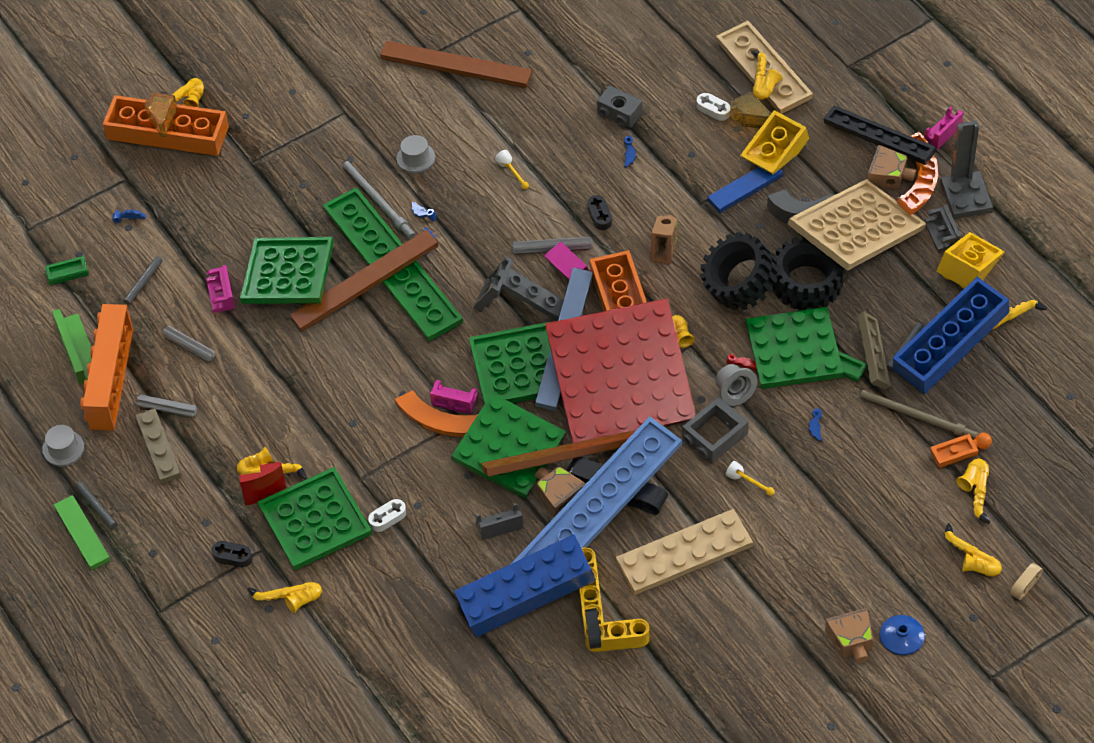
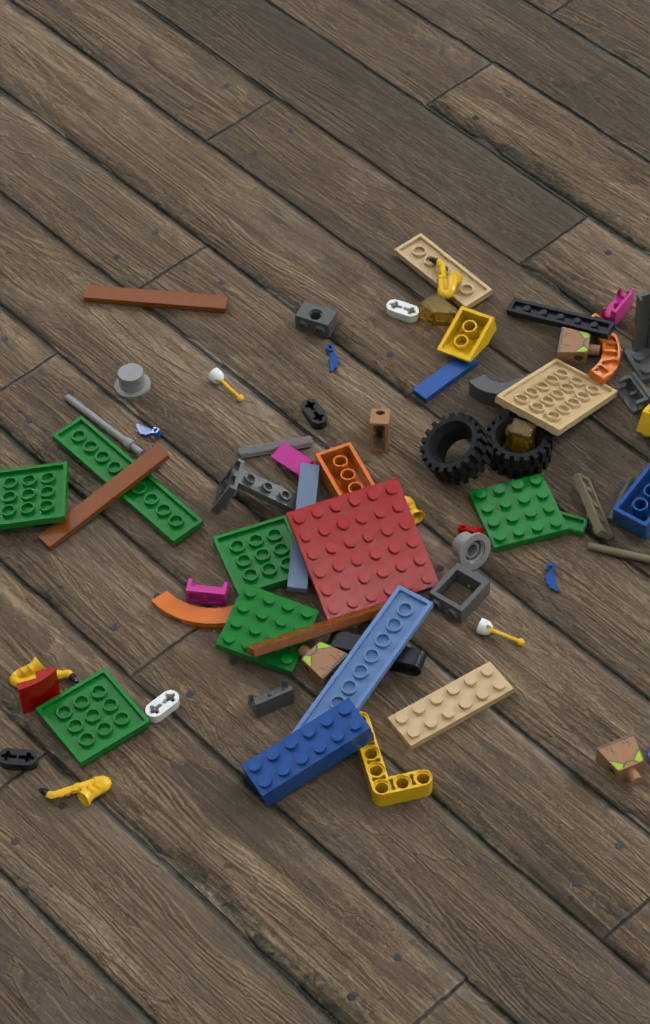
camera: 10 degrees left, 5 degrees down
(593, 628) = (380, 782): black beam -> none
(810, 266) = (520, 436): none -> clear yellow brick

